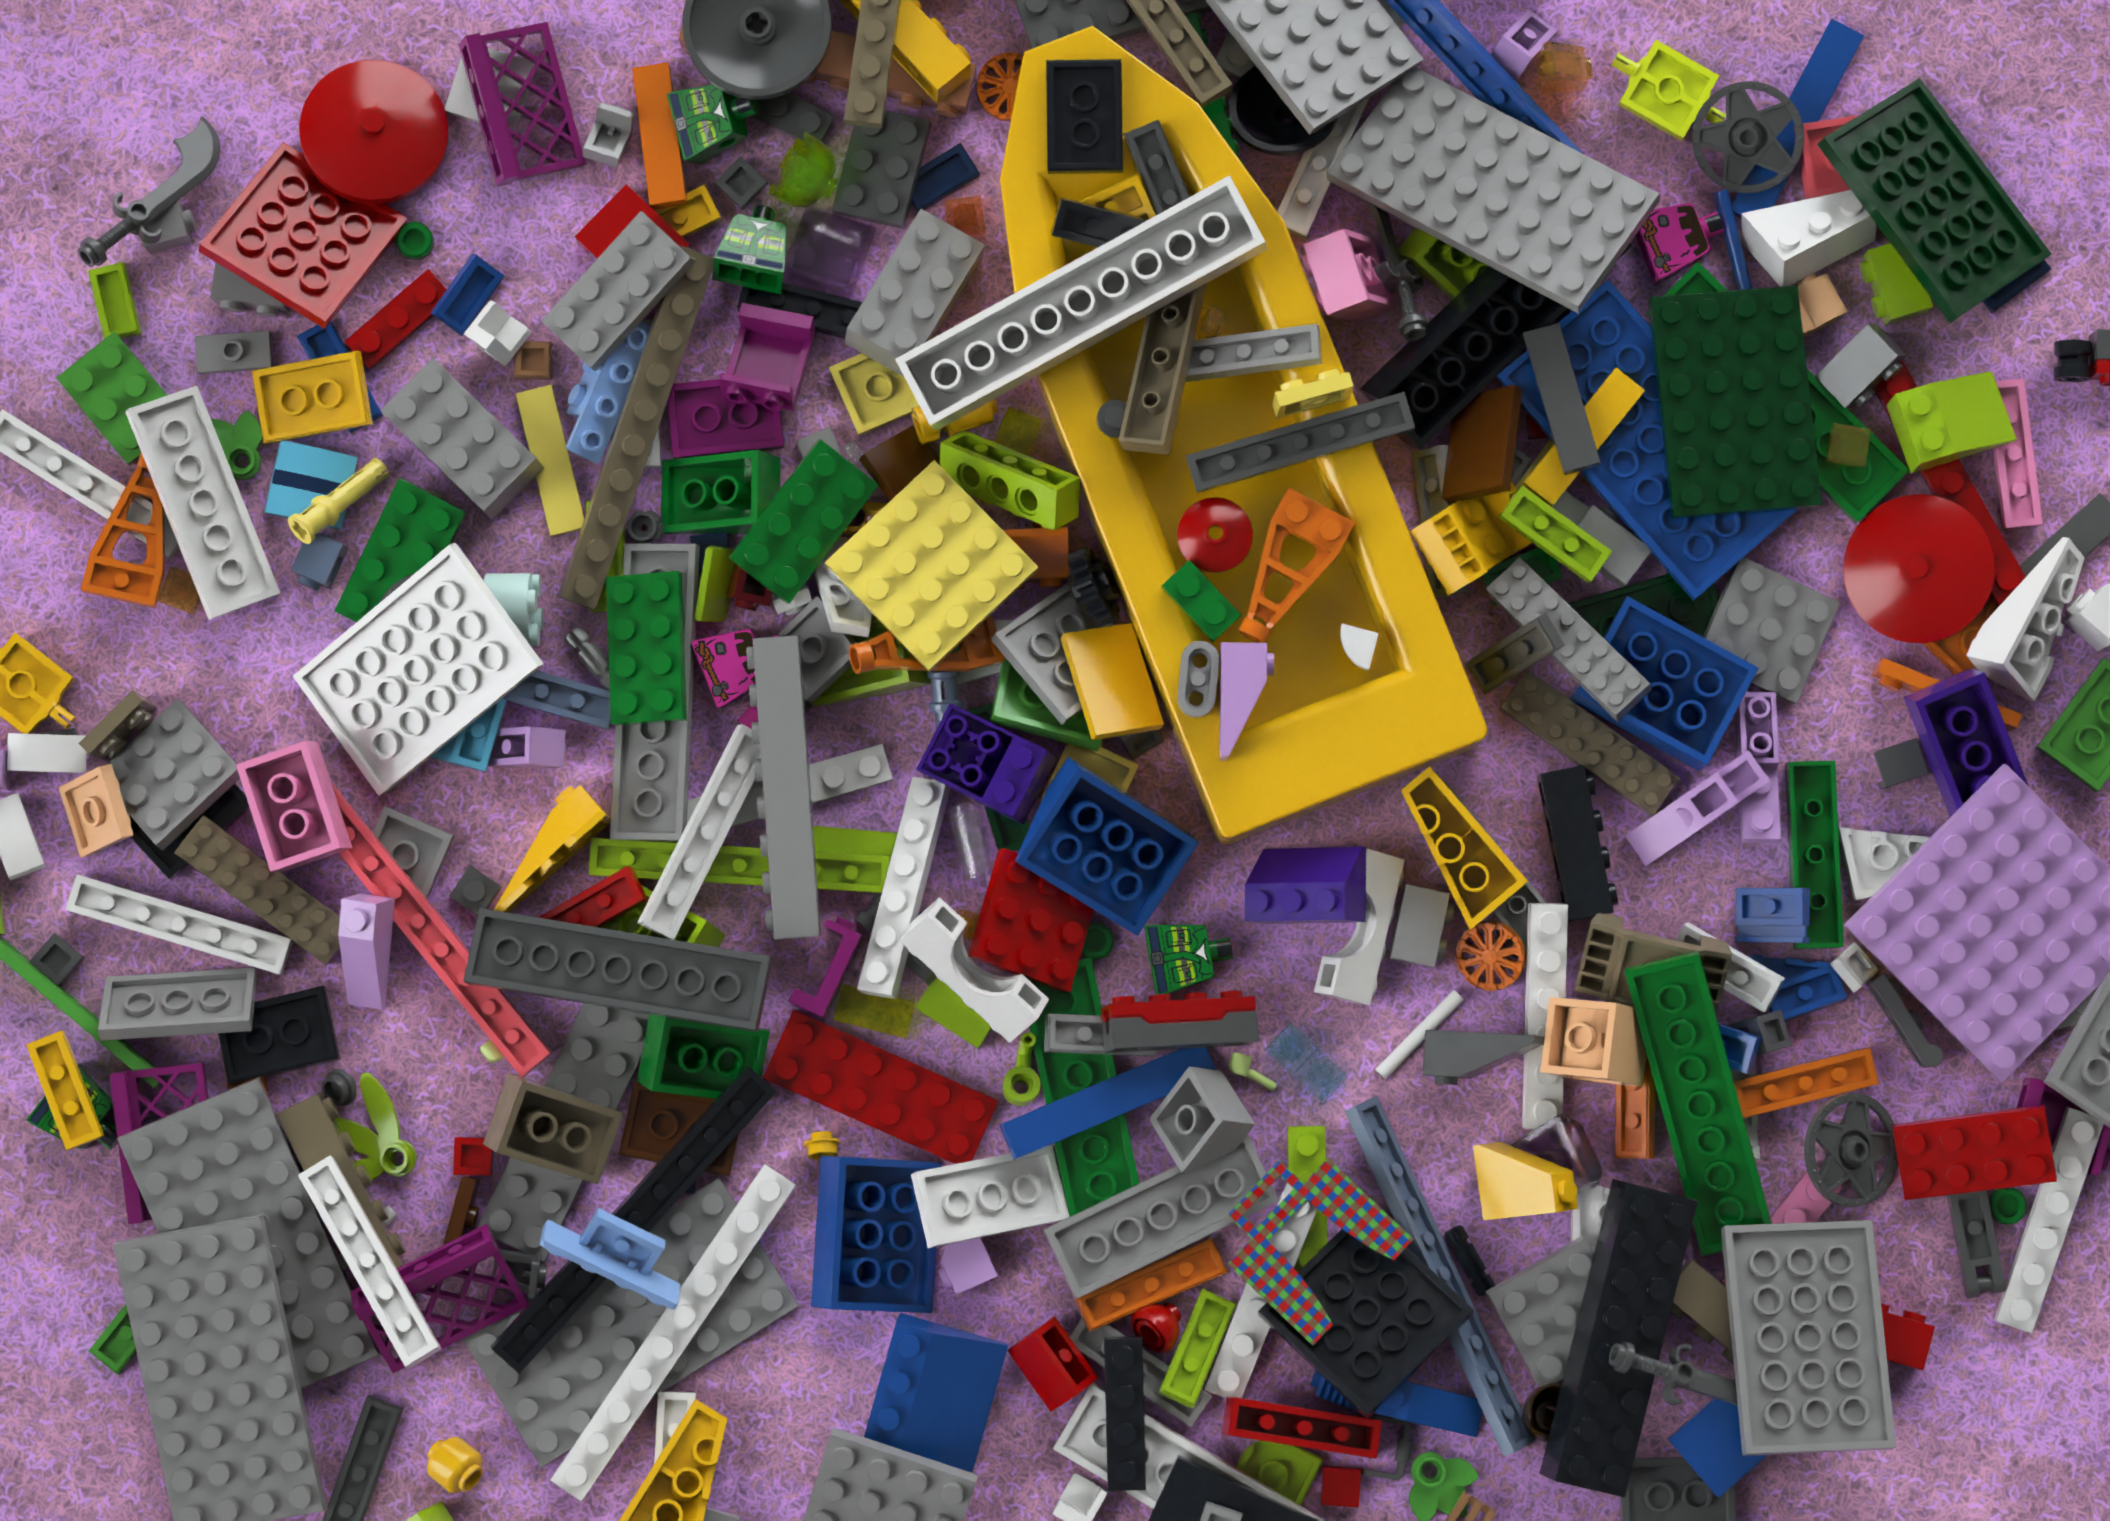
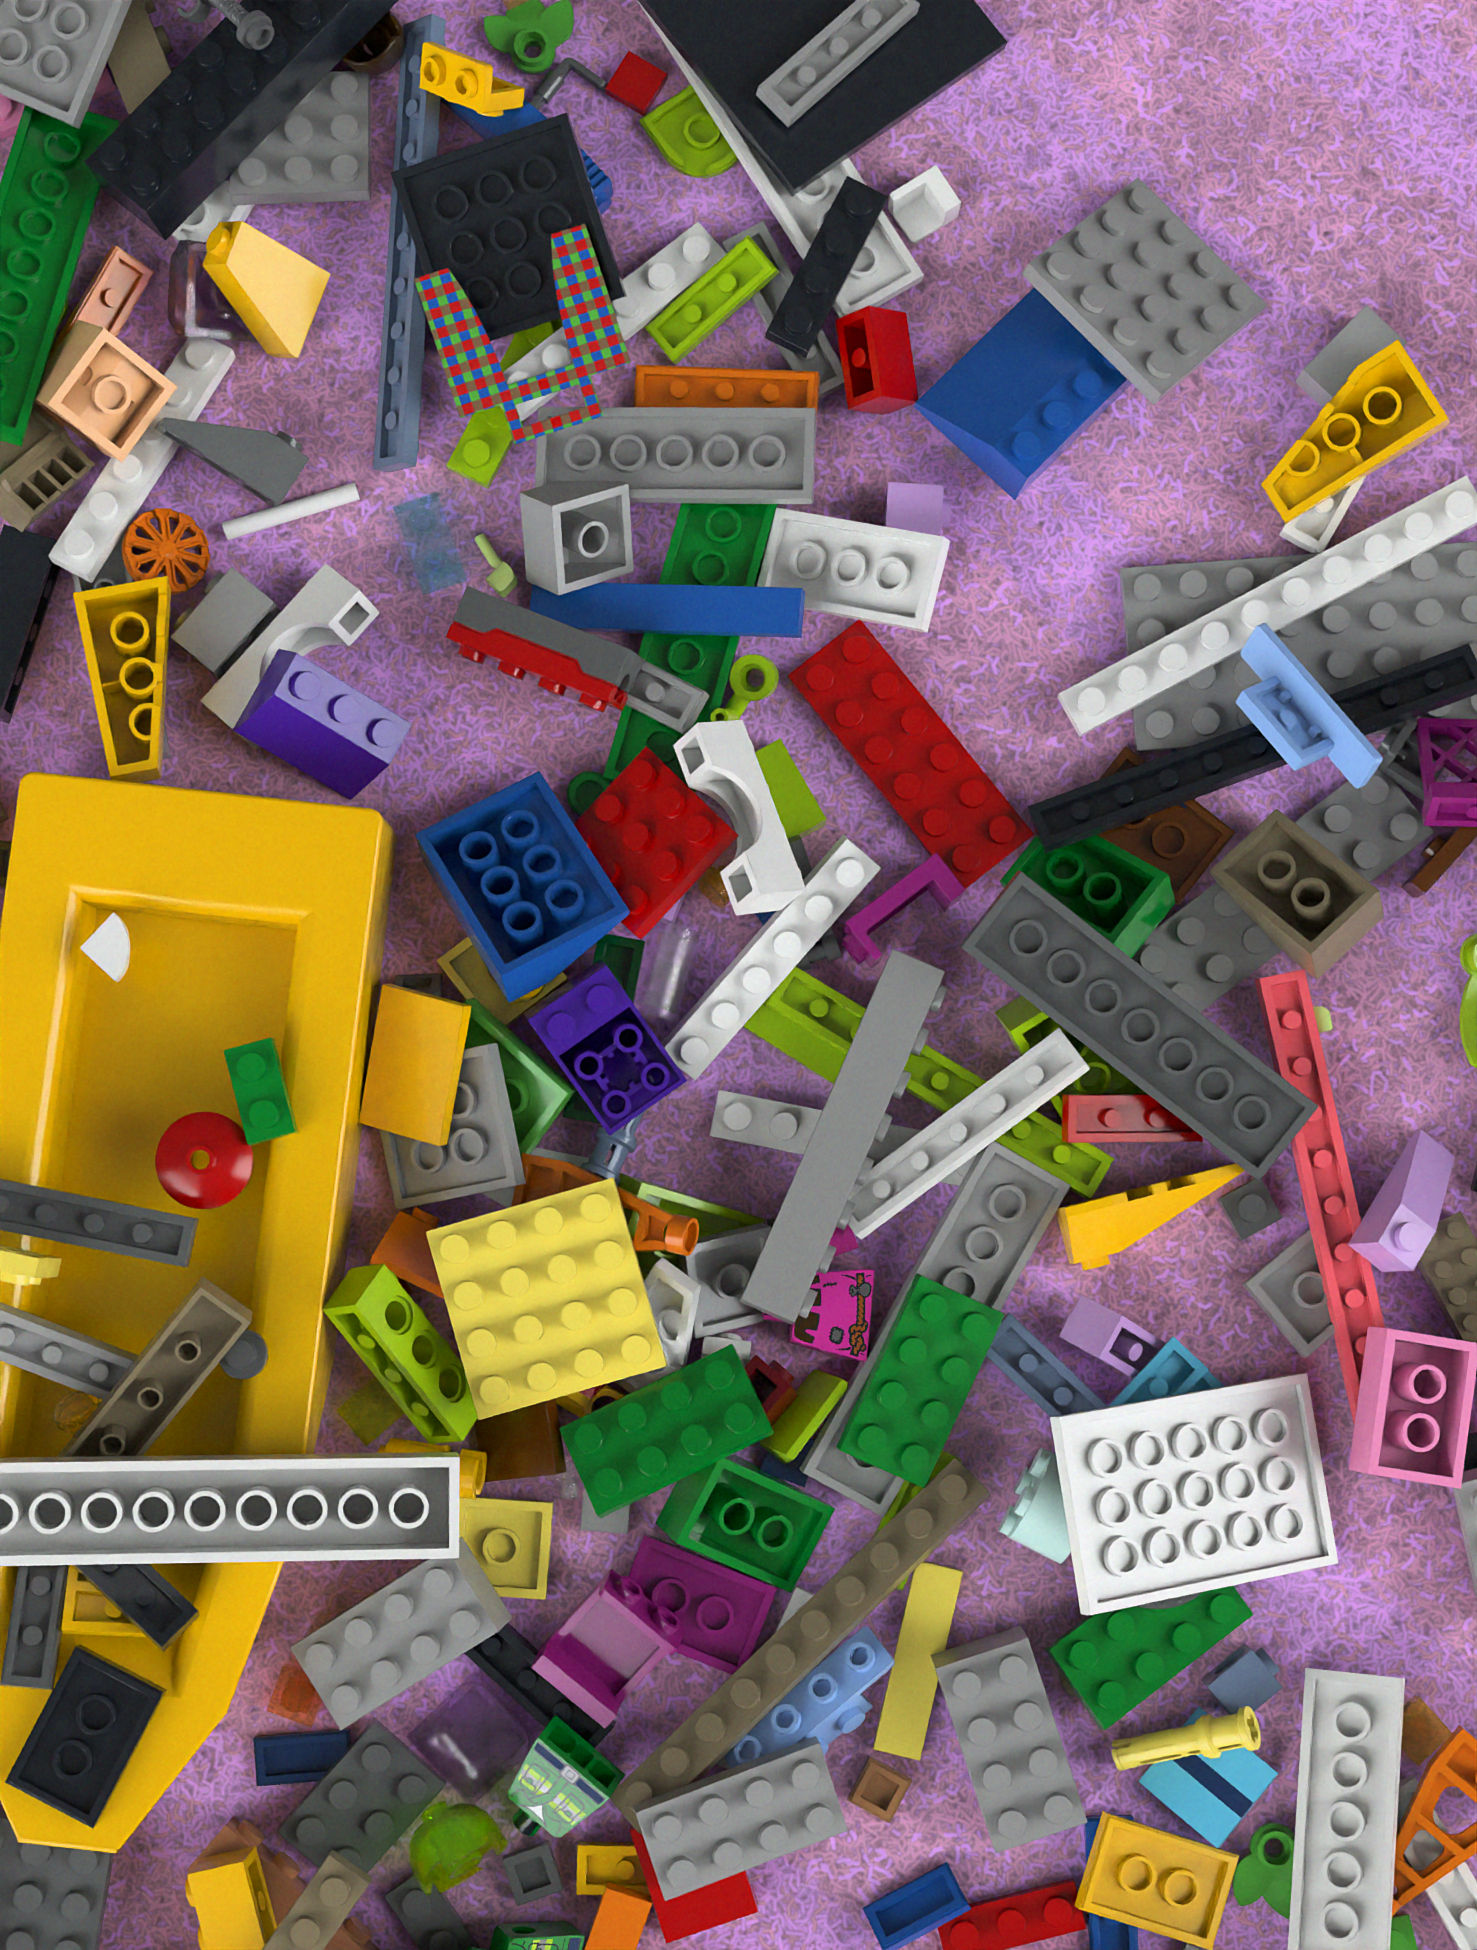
camera: 150 degrees left, 0 degrees up
(472, 1157) = (1402, 913): red plate -> none
(497, 333) = (904, 1843): white panel -> none
(590, 655) = (987, 1409): light grey axle -> none
(642, 518) = (853, 1536): dark grey plate -> none
(821, 1144) = (1006, 727): yellow plate -> none
(871, 1238) = (1002, 599): blue slope -> none
(874, 1012) = (875, 840): clear neon green tile -> none
(1005, 85) = (165, 1825): orange wheel -> none
(1093, 586) = (377, 1182): black gear -> none
(1157, 1326) = (741, 343): red brick -> none
(1183, 955) = (501, 725): torso -> none
(1198, 679) = (308, 999): light grey plate -> none
(1242, 680) = (267, 968): lavender slope -> none
(1301, 1427) = (647, 156): red brick -> none
(1315, 525) = (87, 1115): orange plate -> none
(1455, 1408) = (466, 81): none -> yellow bracket
(1469, 1259) = (369, 245): black axle -> none

